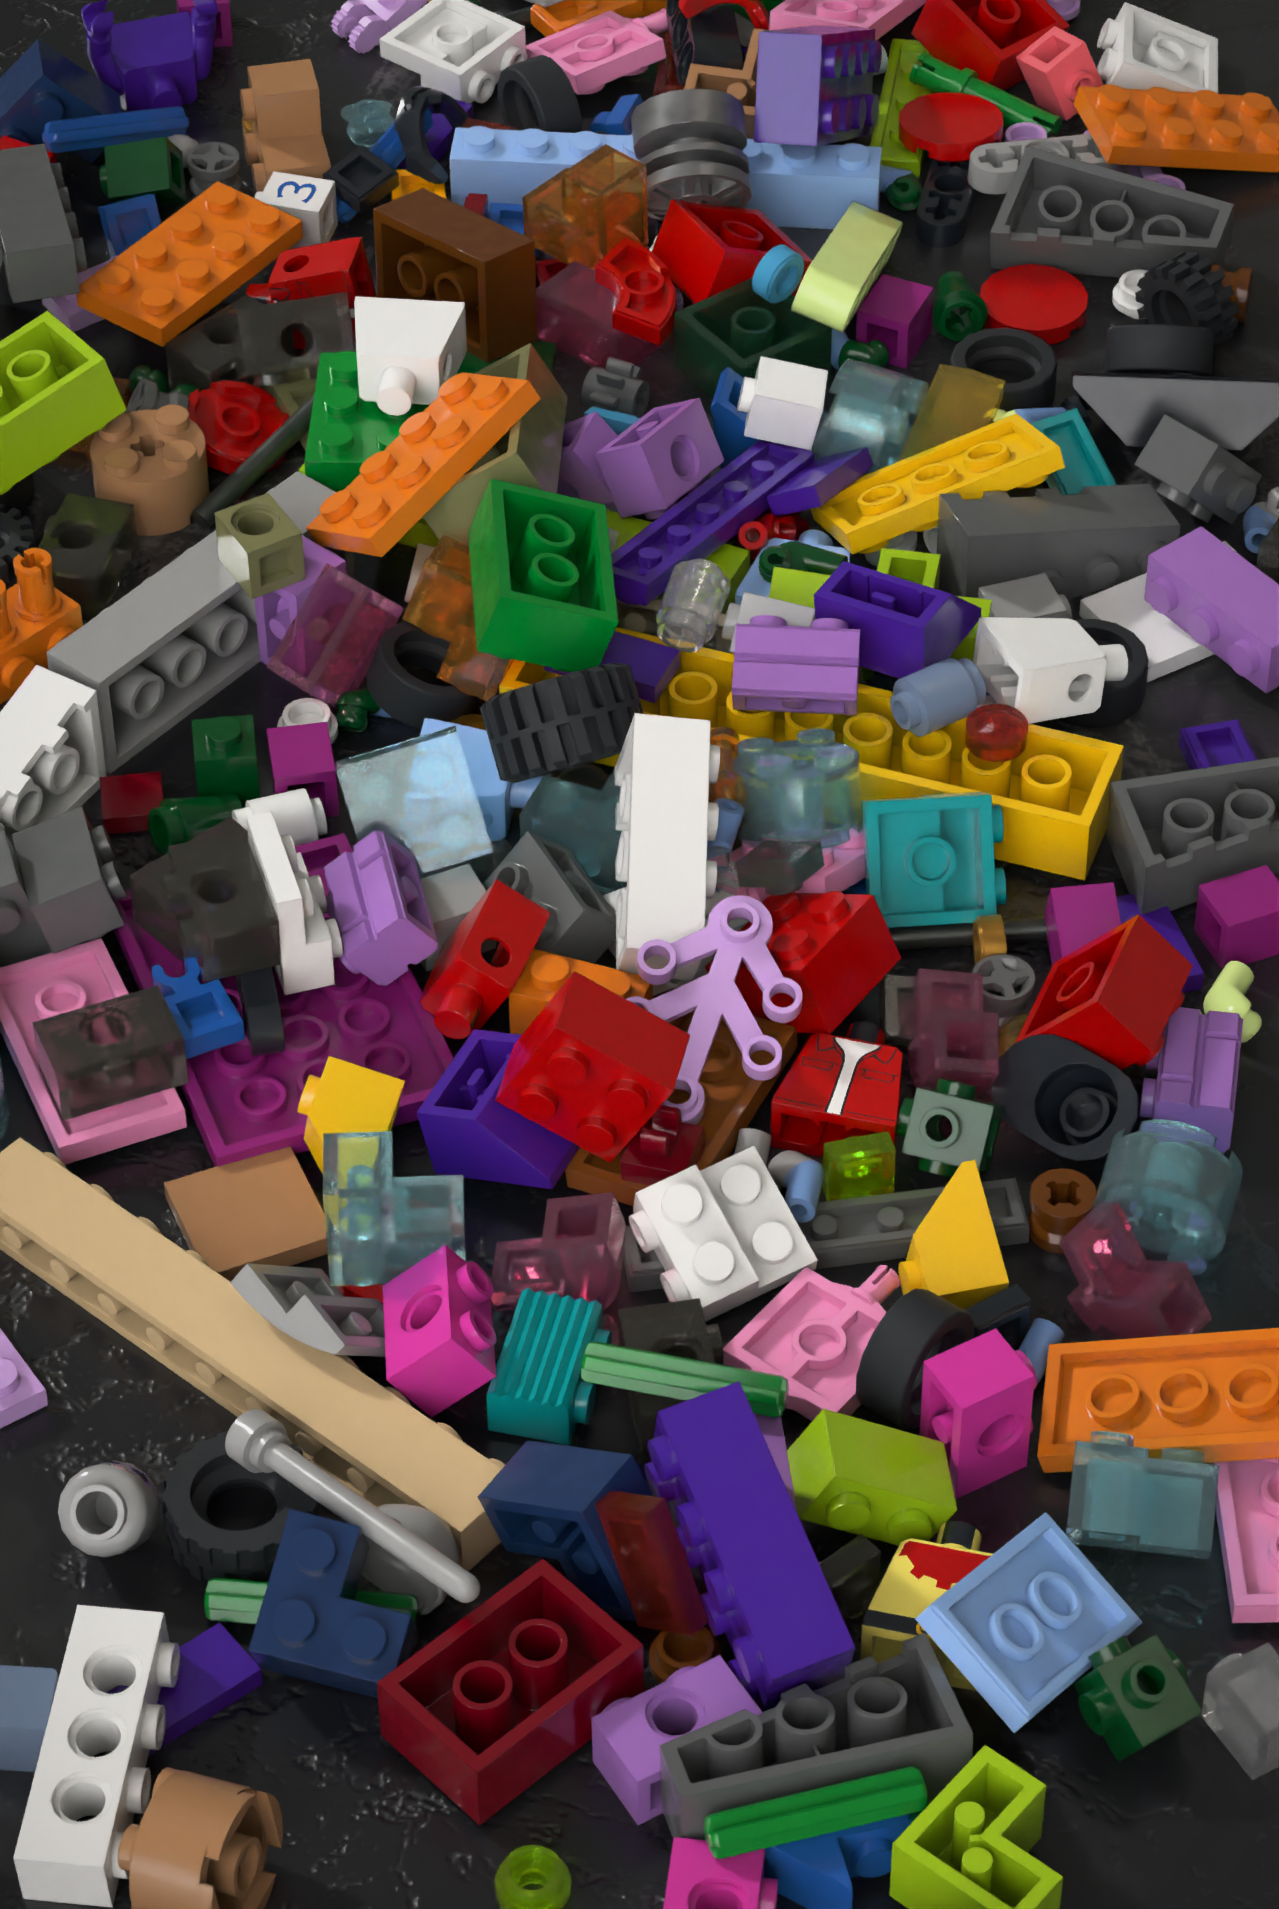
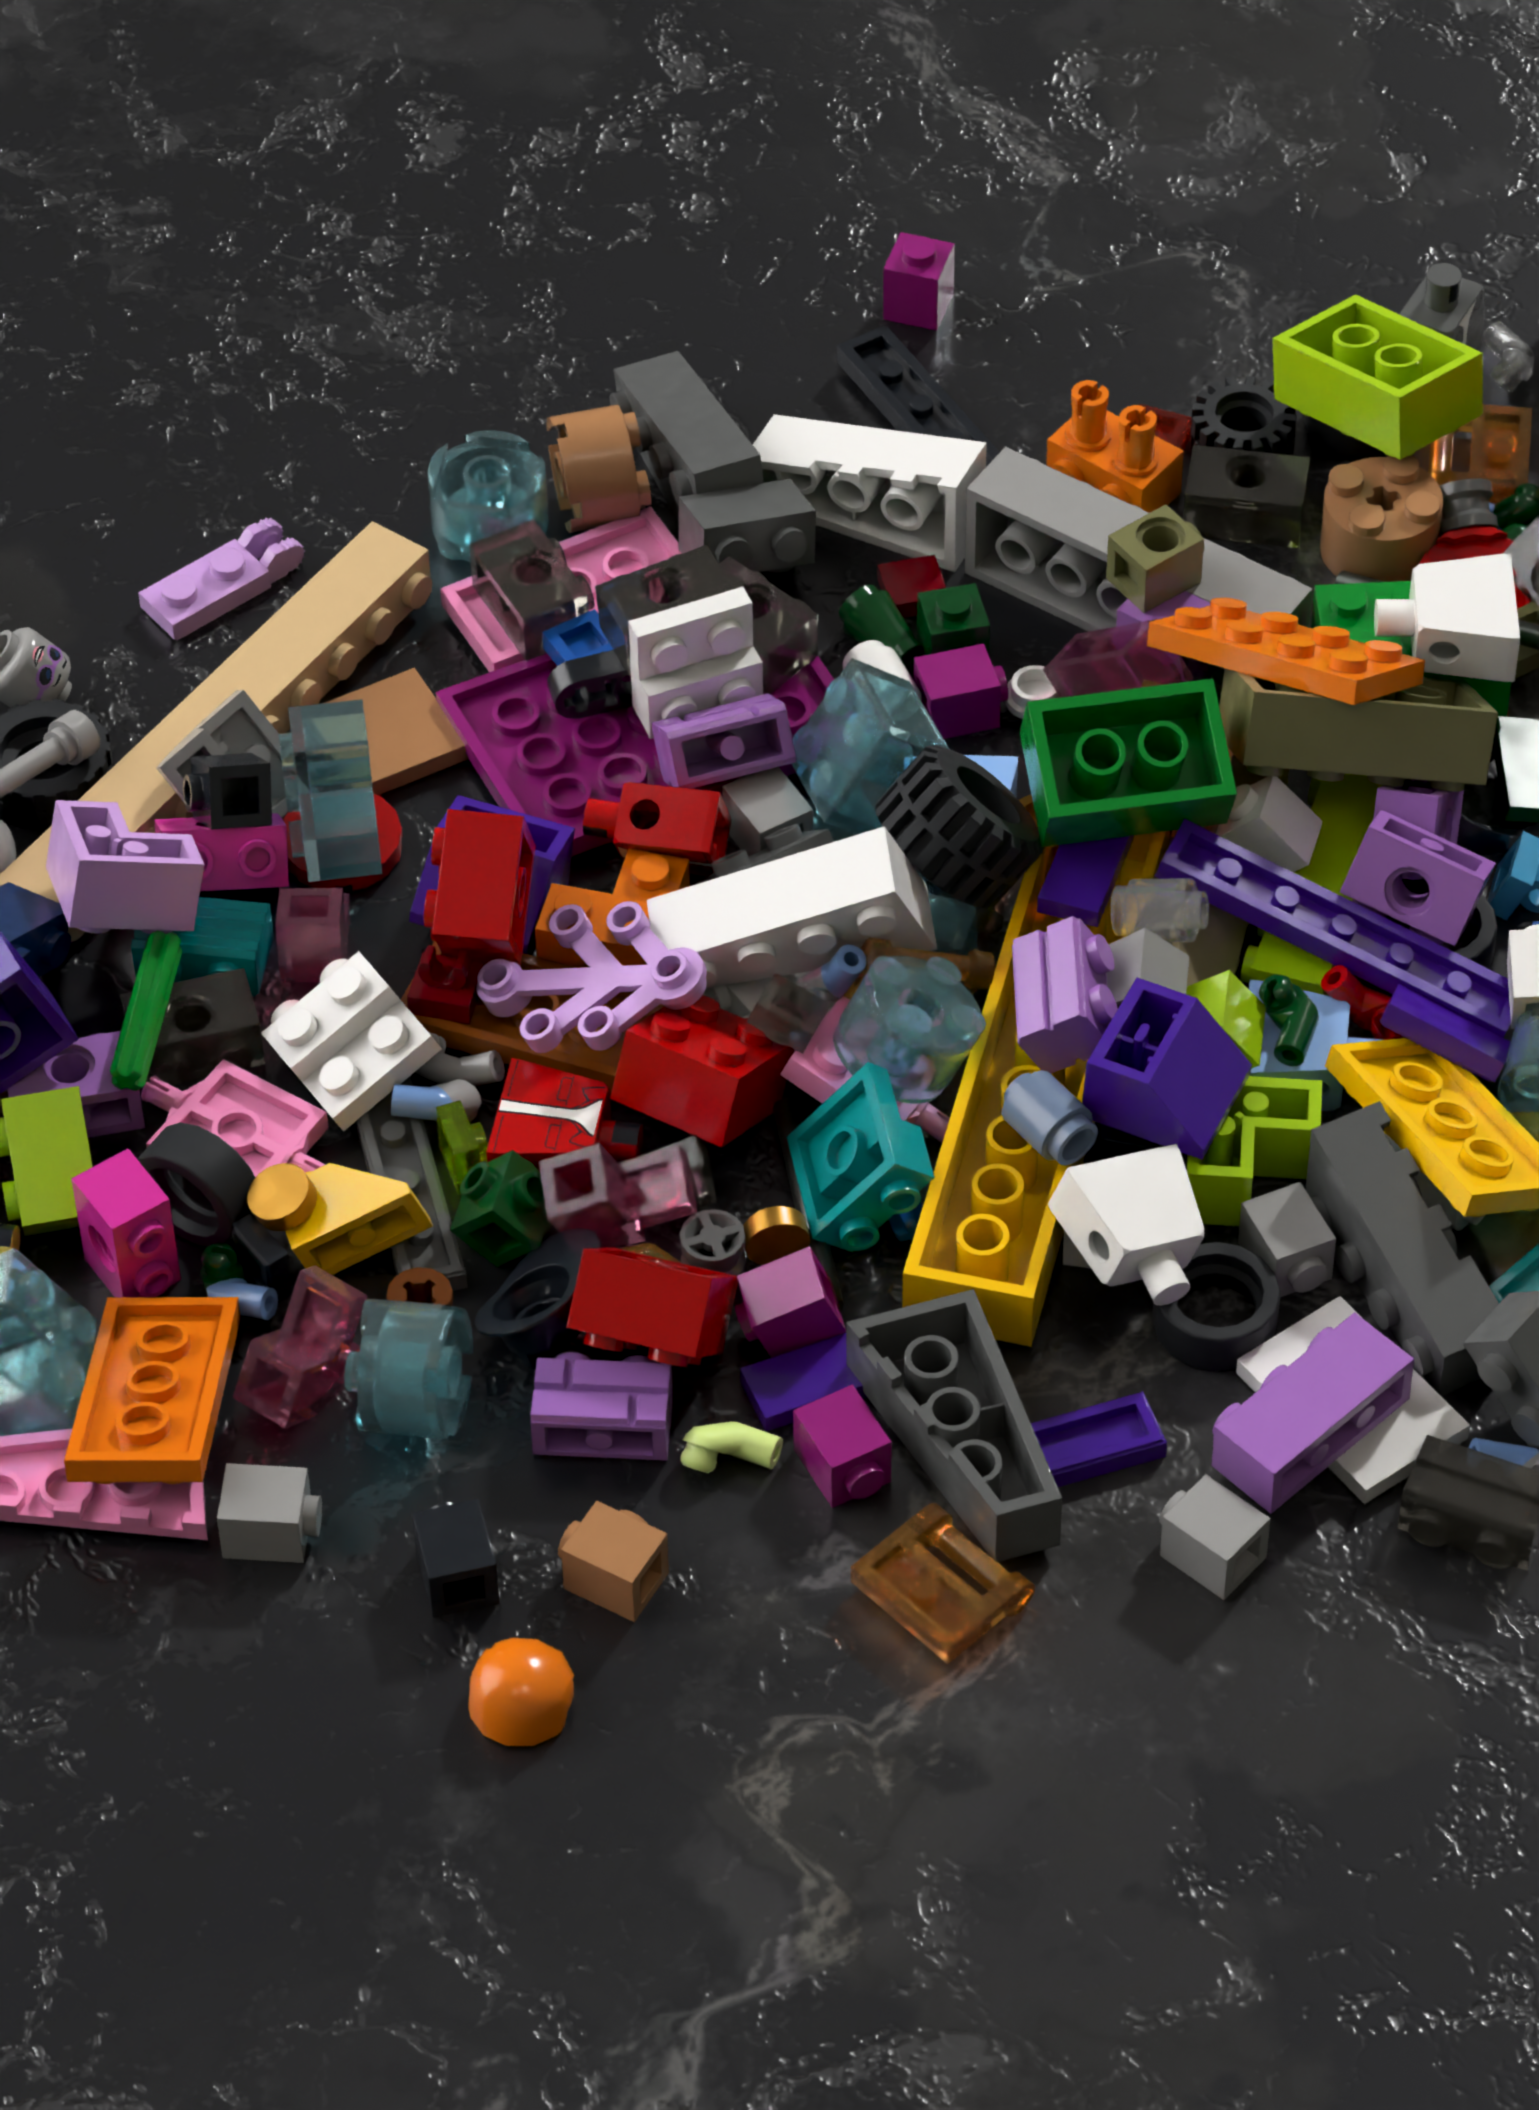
camera: 85 degrees right, 5 degrees up
(347, 1101) = (453, 757): yellow slope -> none
(394, 1282) = (229, 791): none -> black brick
(513, 1379) = (121, 876): none -> lavender brick
(955, 1272) = (282, 1197): none -> tile
(996, 732) = (1020, 1181): clear red tile -> none

